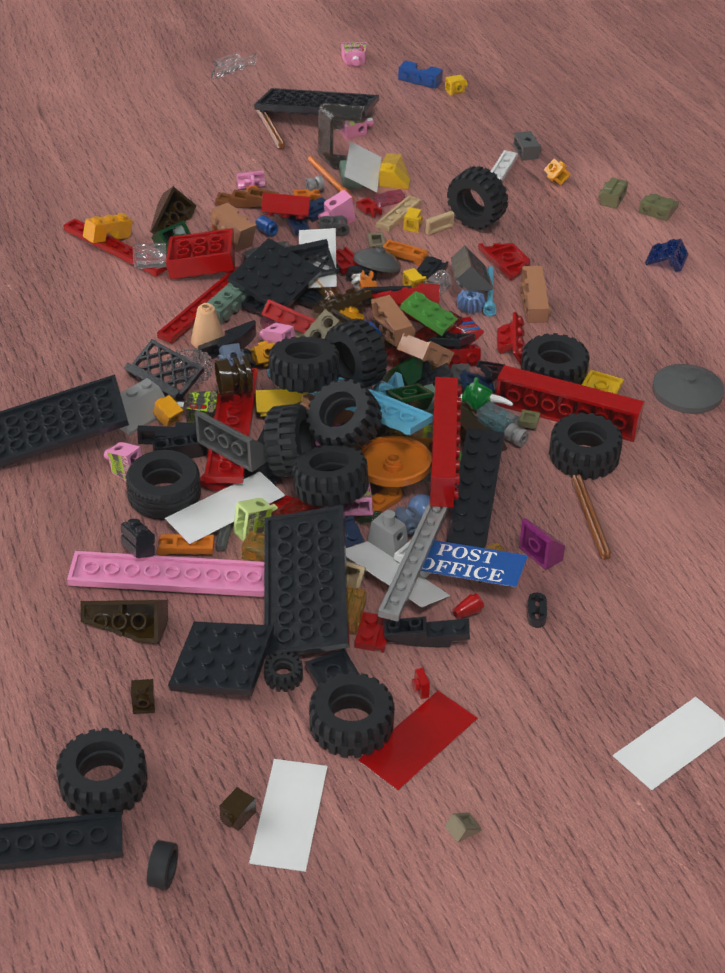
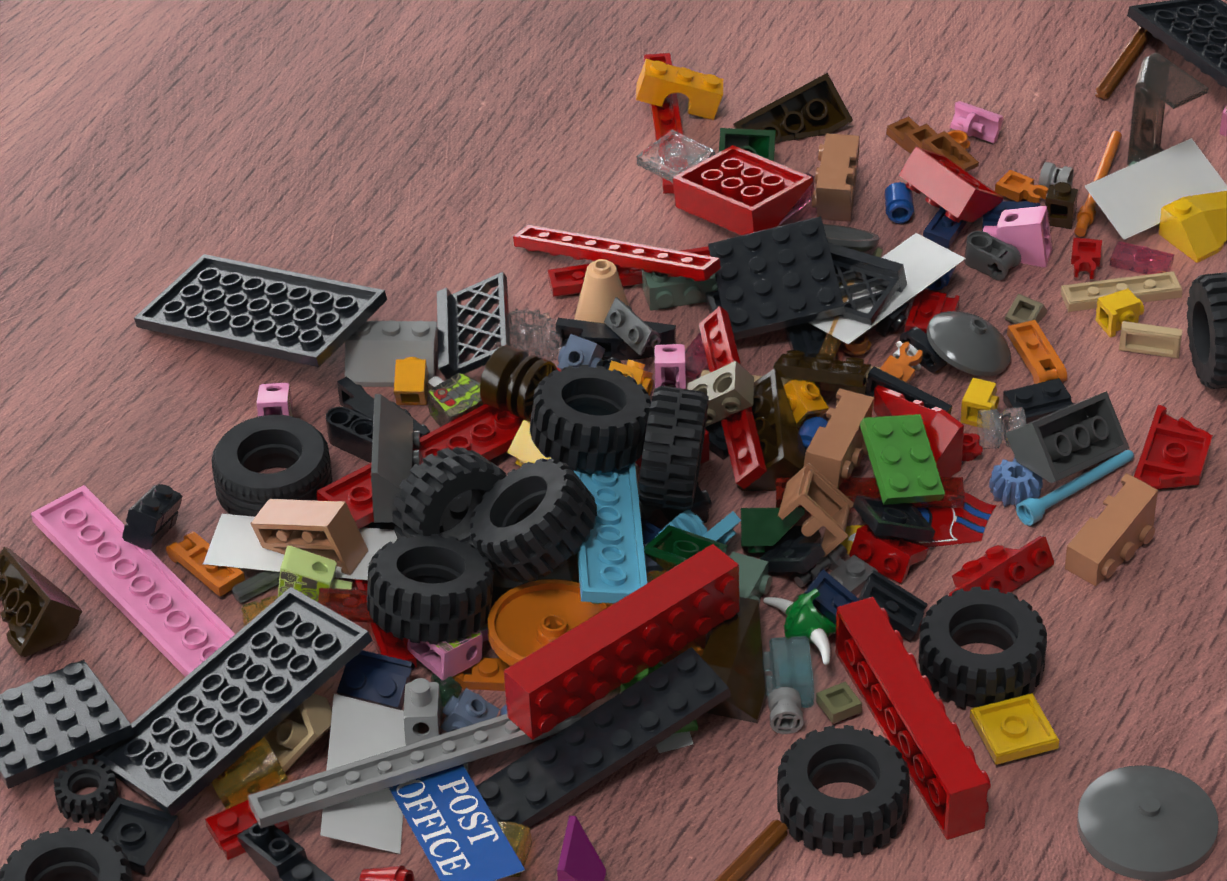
camera: 50 degrees right, 0 degrees up
(184, 305) = (618, 252): none -> red plate
(225, 492) = (312, 526): none -> nougat wedge
(241, 329) = (631, 327): none -> dark grey hinge
(332, 189) = (1063, 200): none -> dark brown brick

